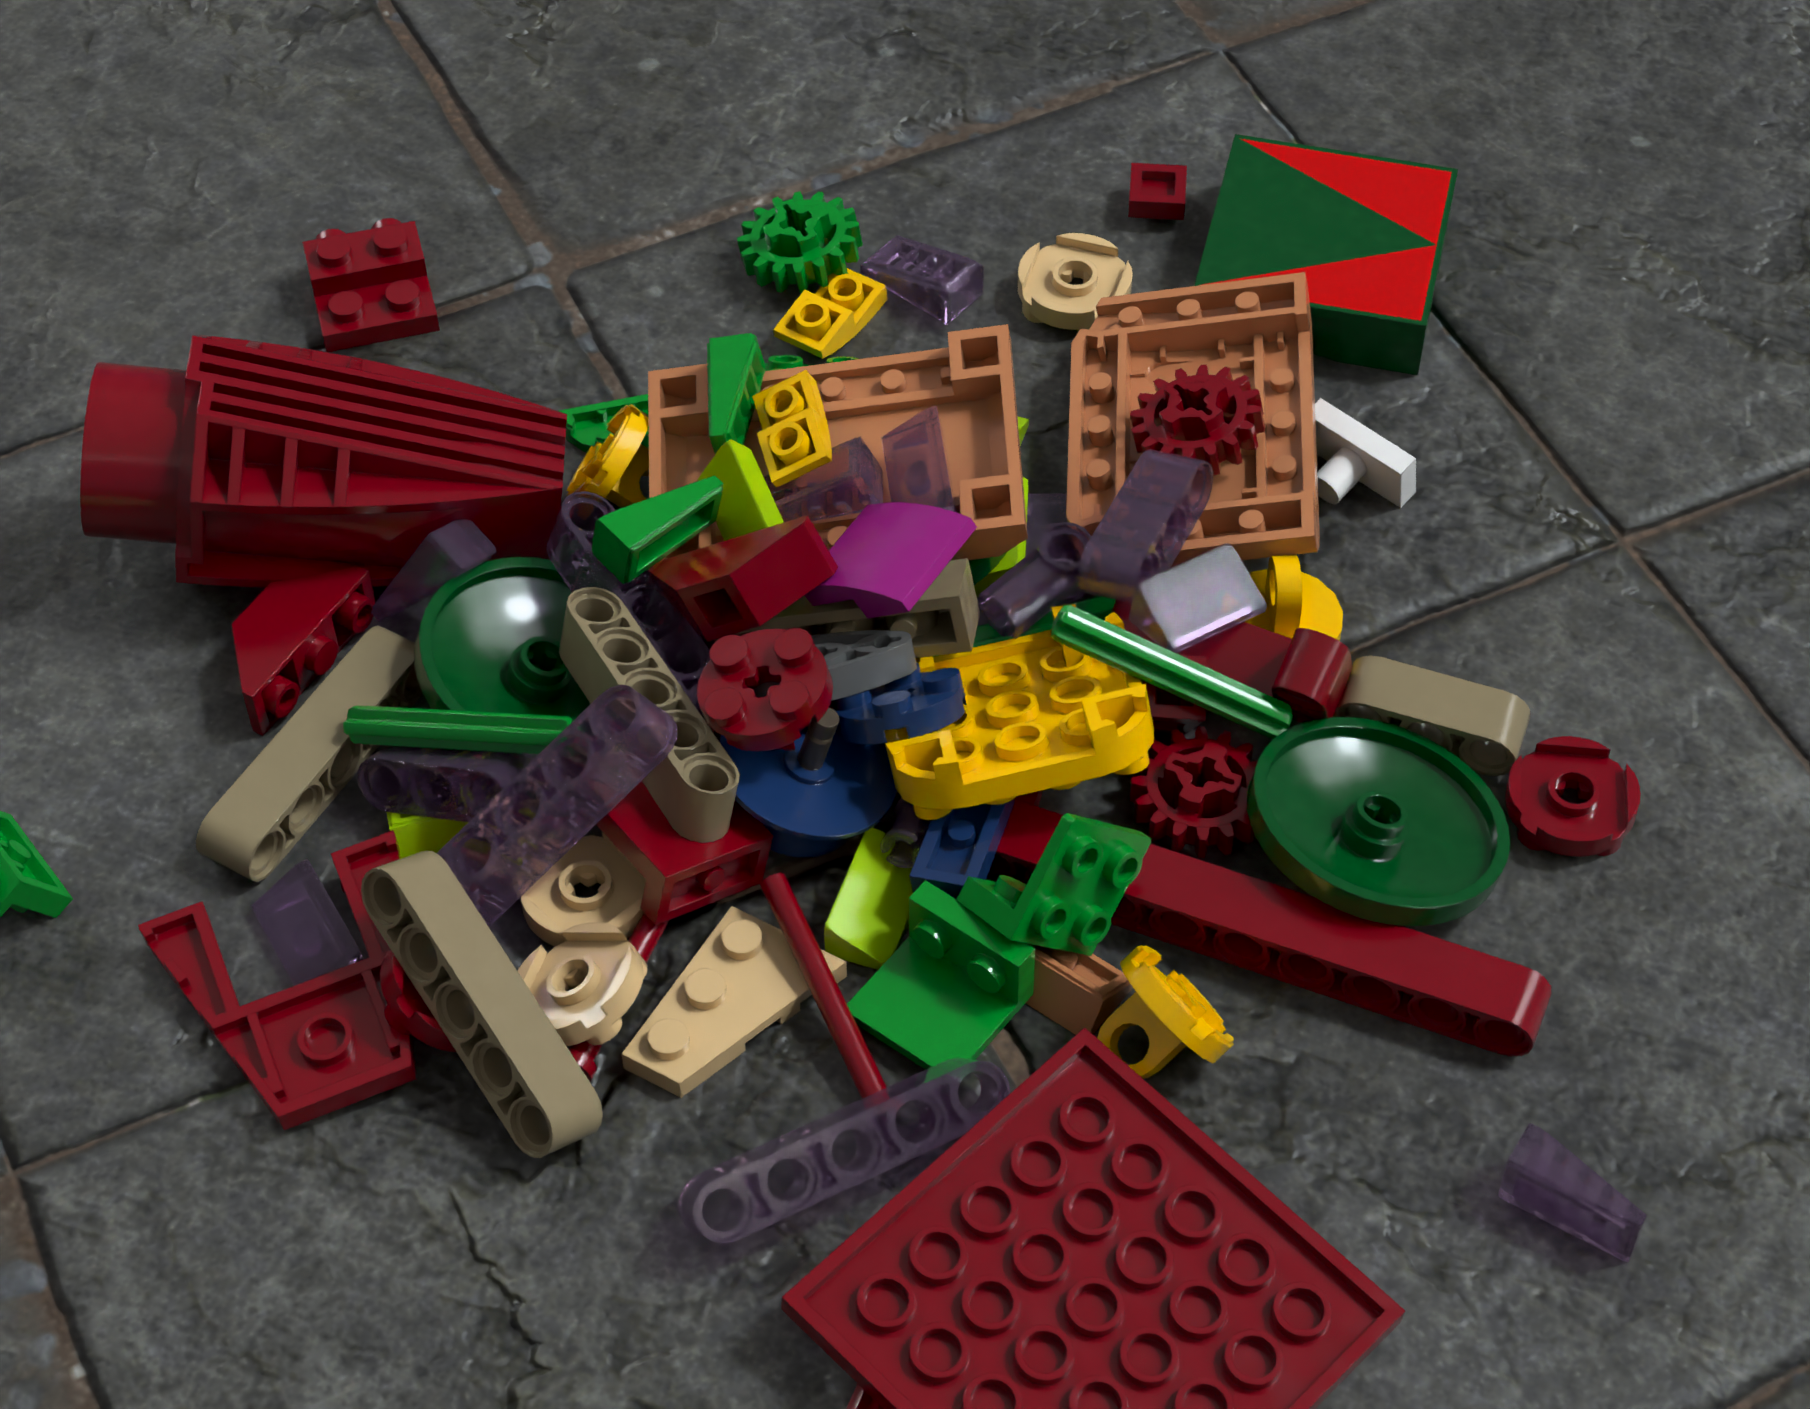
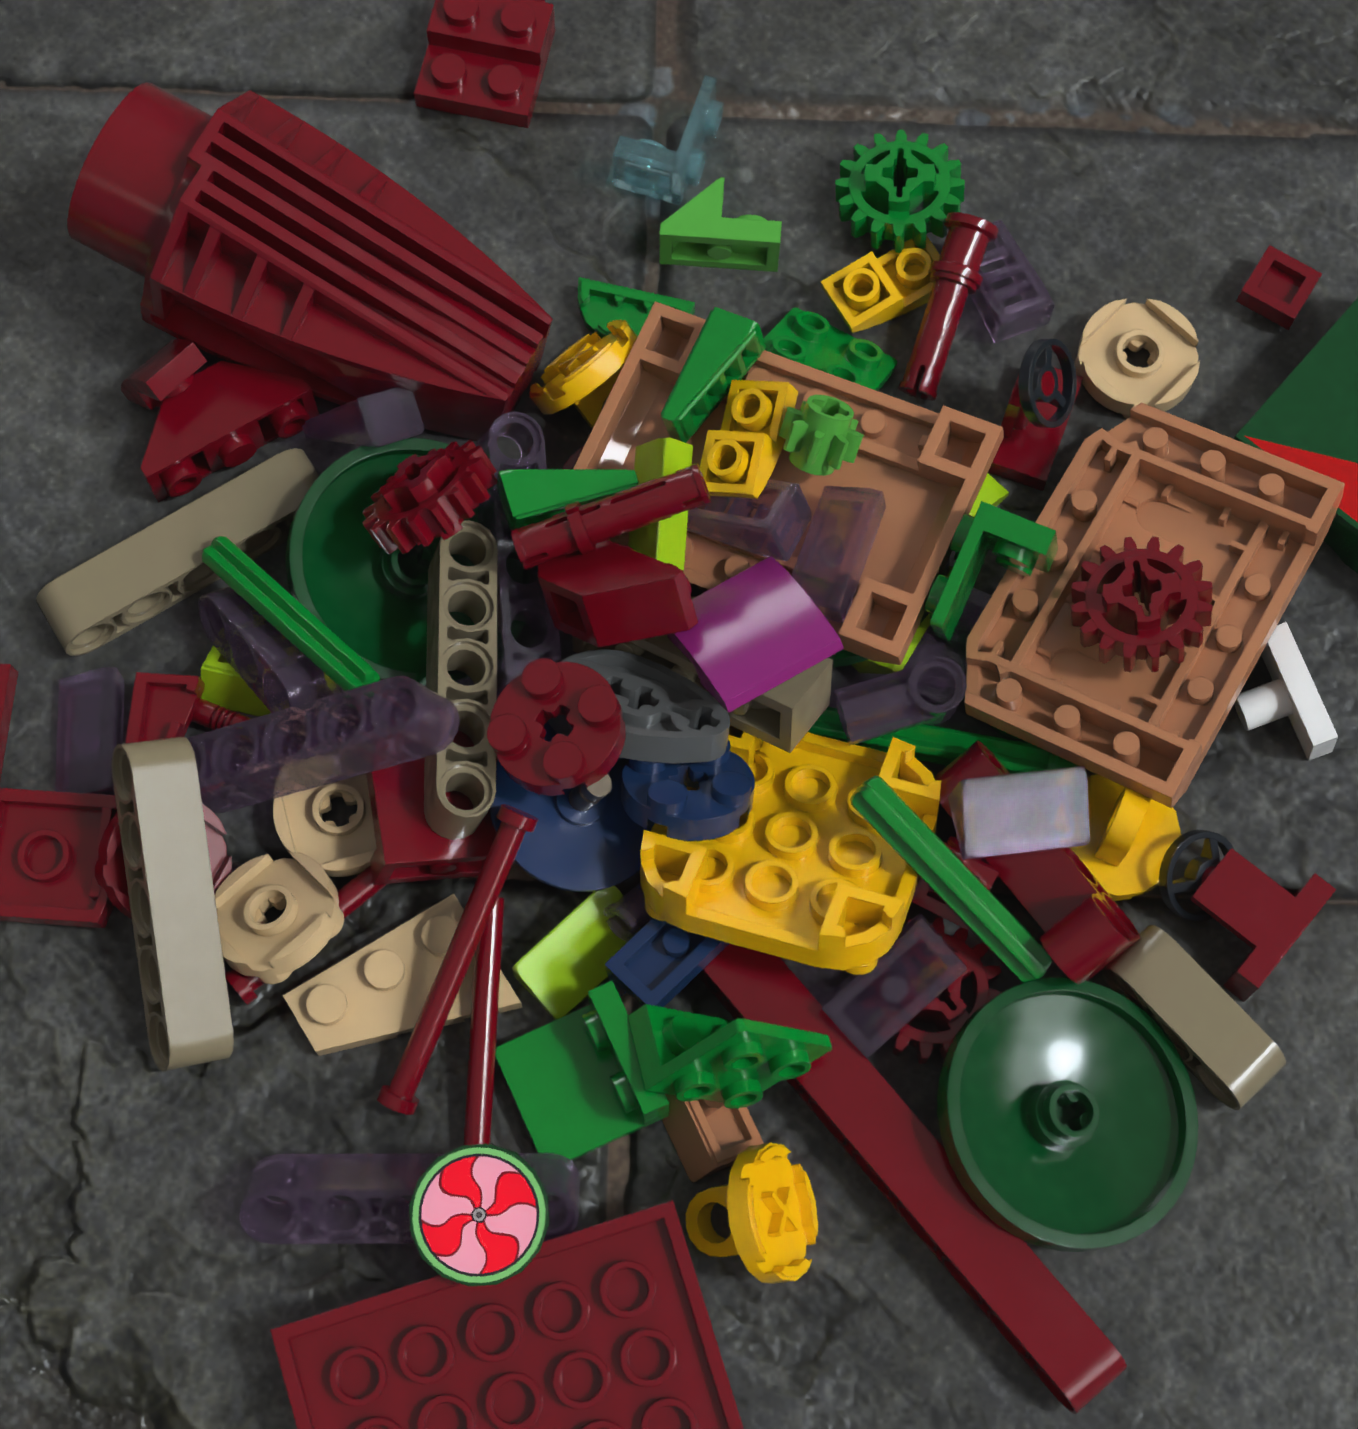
camera: 25 degrees right, 20 degrees up
(225, 607) = (164, 374): none -> dark red slope
(540, 576) = (429, 497): none -> dark red gear
(583, 305) = (664, 173): none -> clear light blue bracket
(657, 337) = (704, 238): none -> bright green slope
(697, 531) = (602, 519): none -> dark red pin
(779, 1081) = (401, 1092): none -> dark red bar
(857, 394) = (820, 435): none -> bright green gear
(888, 279) = (953, 278): none -> dark red pin
(921, 1104) = (479, 1214): none -> tile
(1027, 329) = (1037, 414): none -> piece
(1061, 411) = (1015, 542): none -> green bracket
(1145, 524) = (1019, 705): clear purple beam -> none
(1174, 781) = (903, 983): none -> slope
(1416, 606) = (1243, 902): none -> dark red piece
(1564, 827) = (1310, 1161): dark red plate -> none

